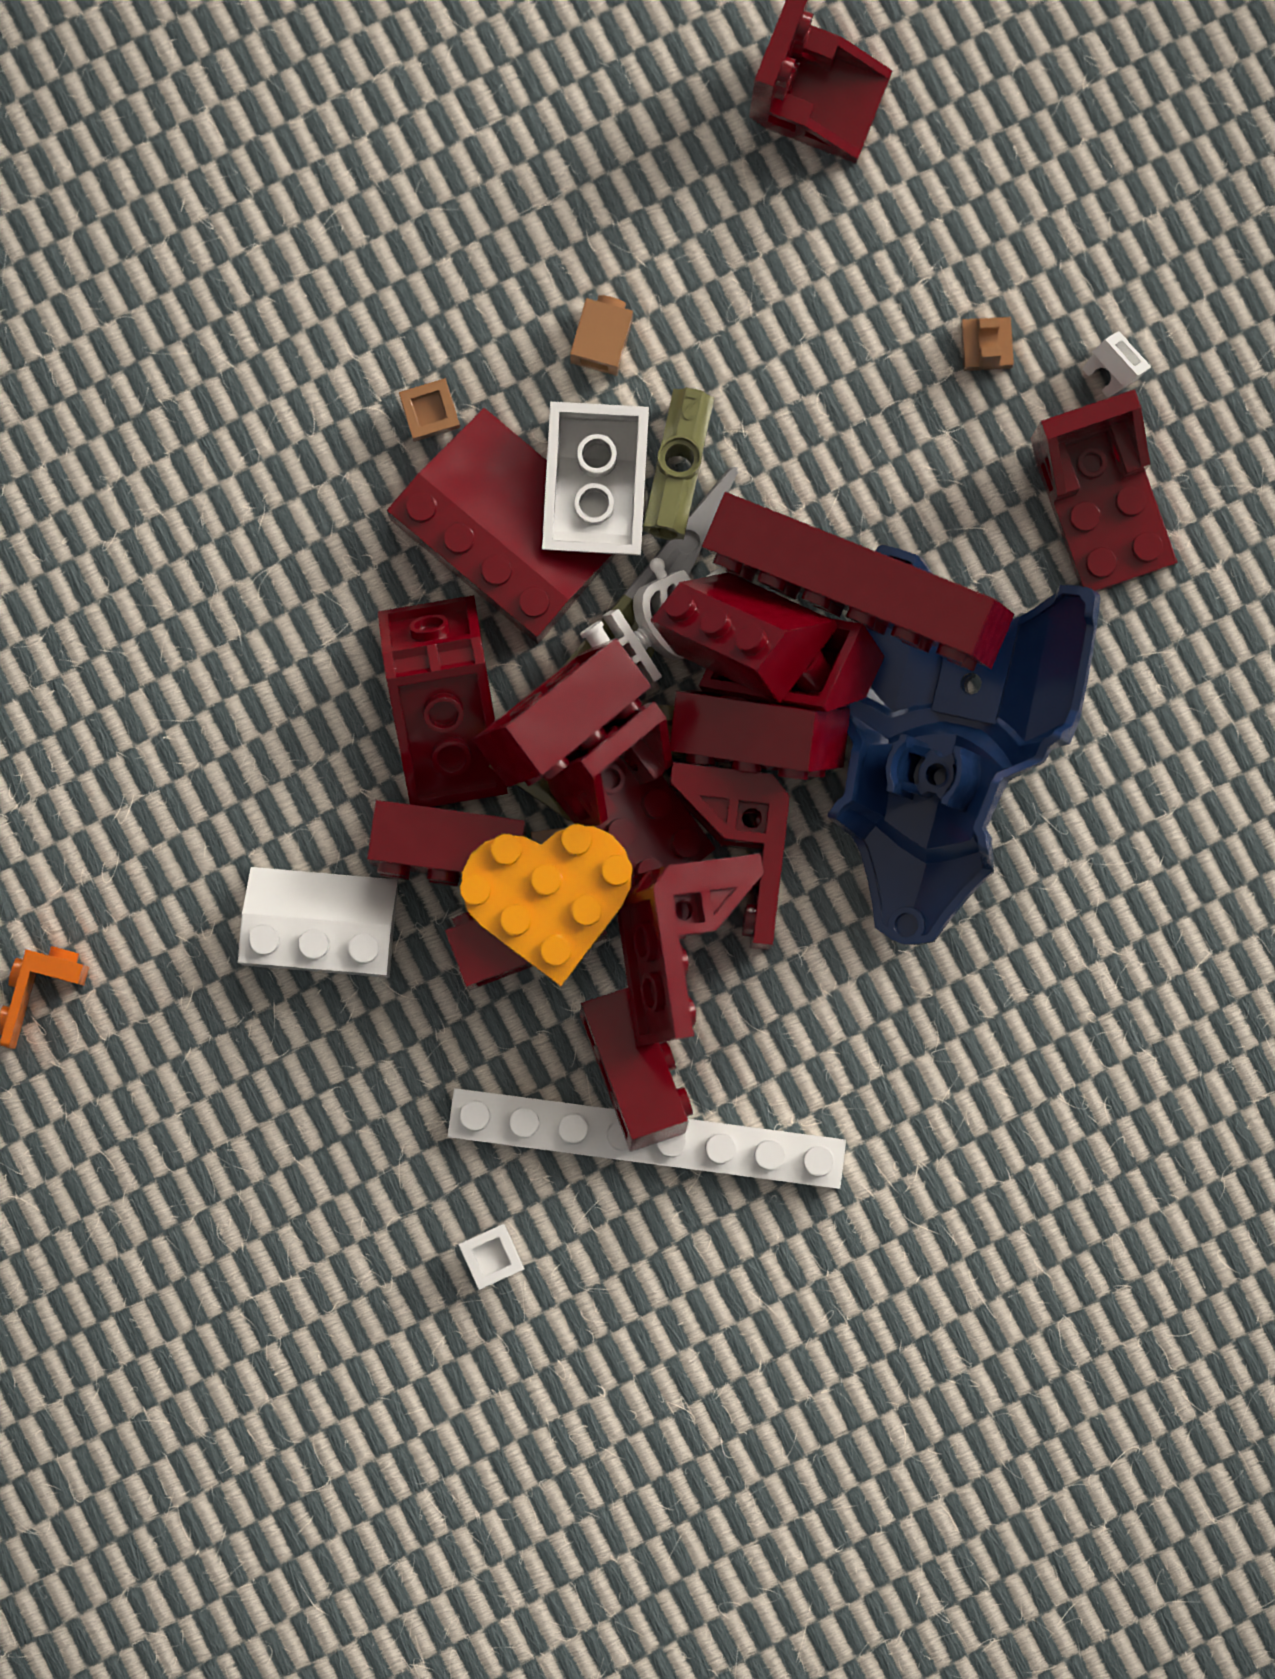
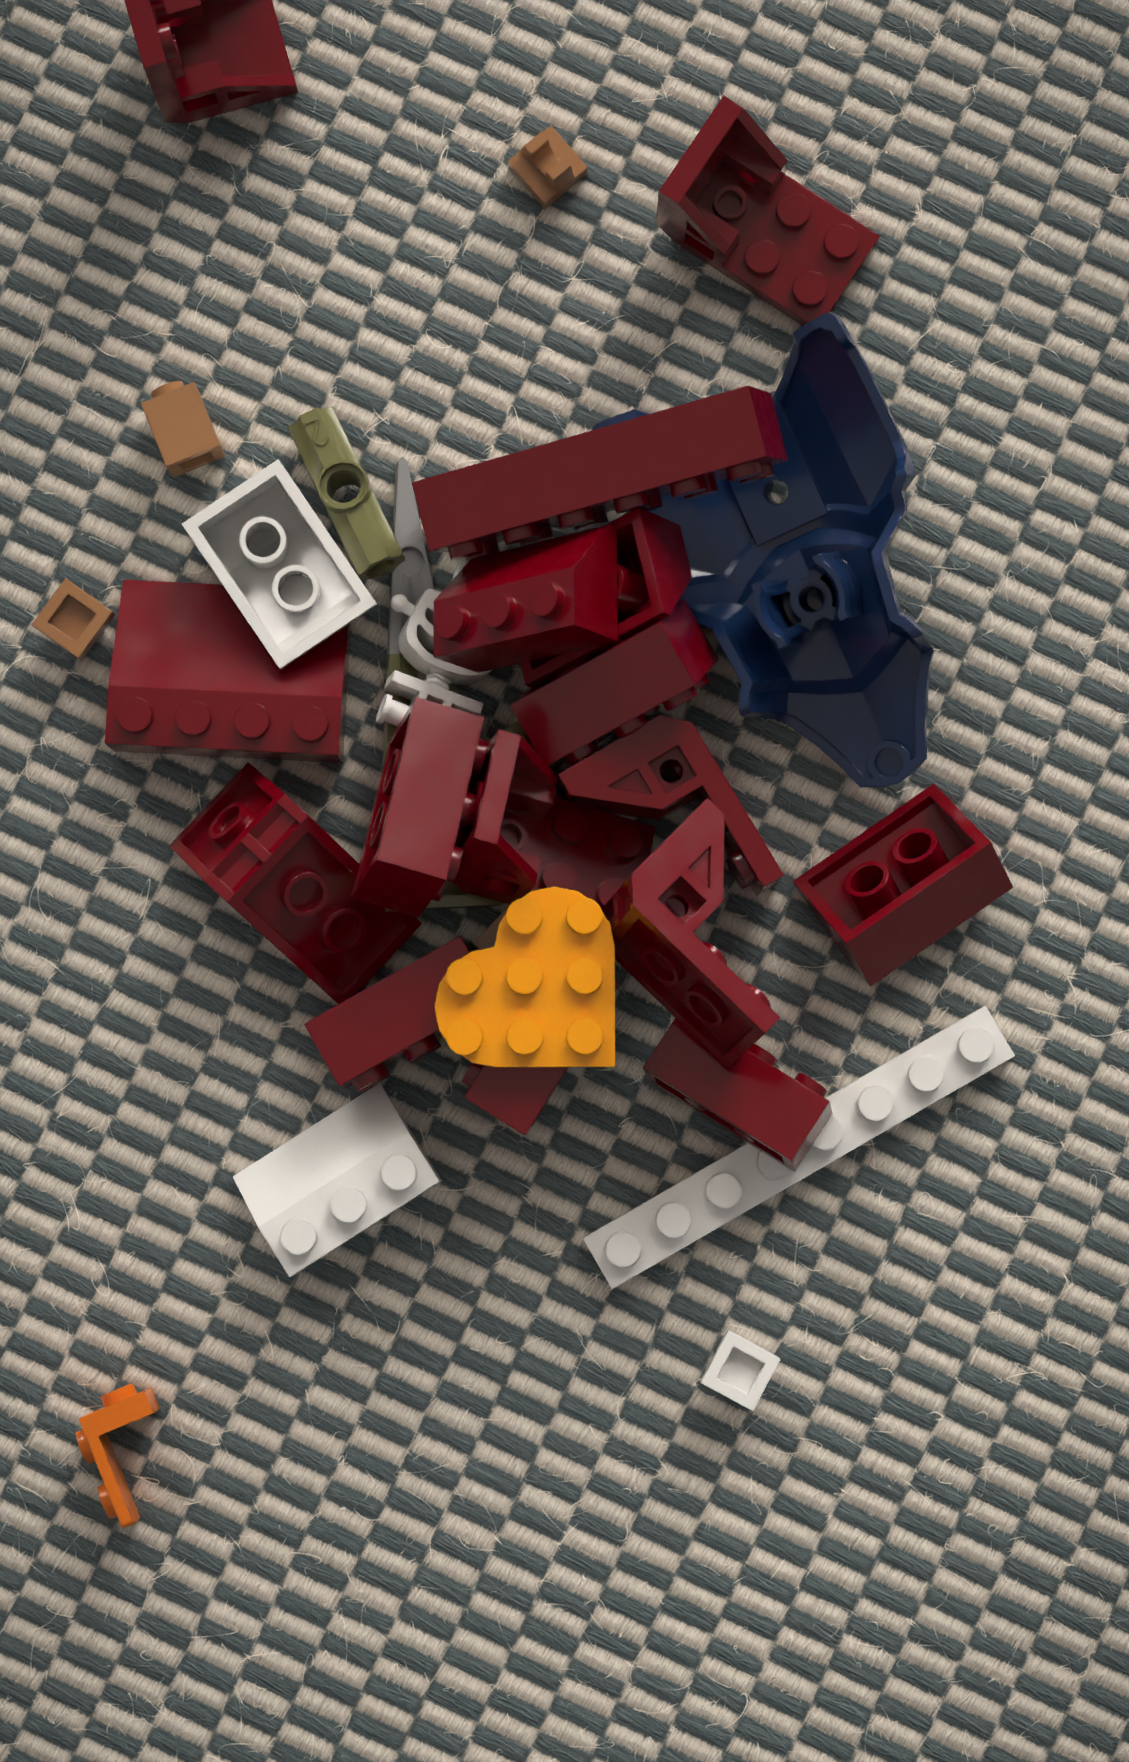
camera: 30 degrees left, 0 degrees up
(853, 1015) = (904, 884): none -> dark red slope
(1120, 360) = (682, 88): white tile -> none

